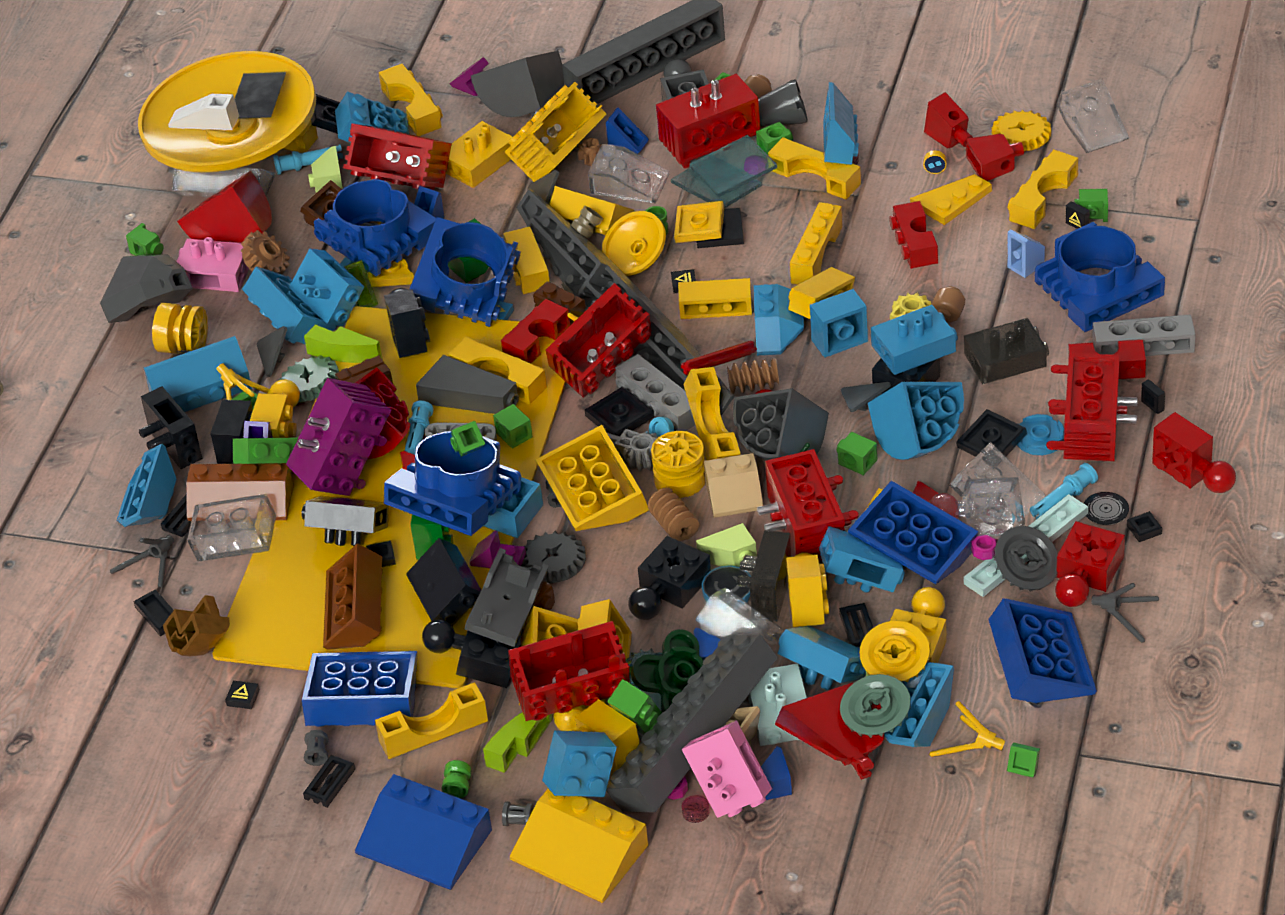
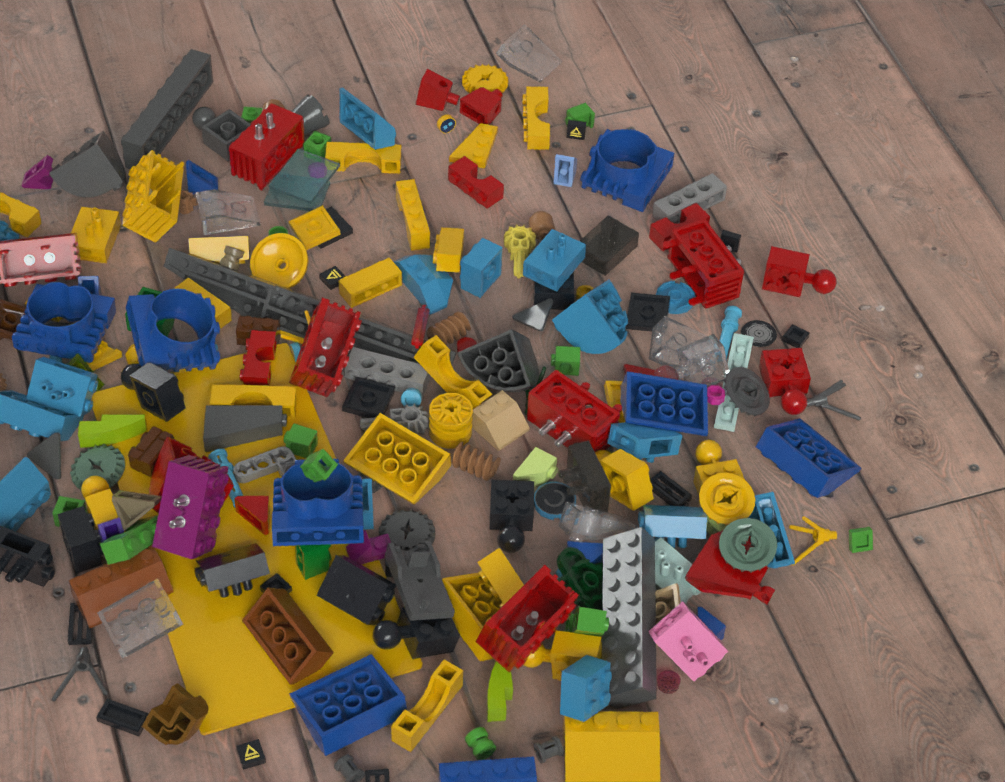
camera: 40 degrees left, 5 degrees up
(148, 489) = (36, 618): dark azure wedge -> none
(232, 379) = (41, 495): yellow plant -> none
(288, 419) = (133, 505): none -> dark tan slope
(544, 186) = (173, 240): dark grey piece -> none

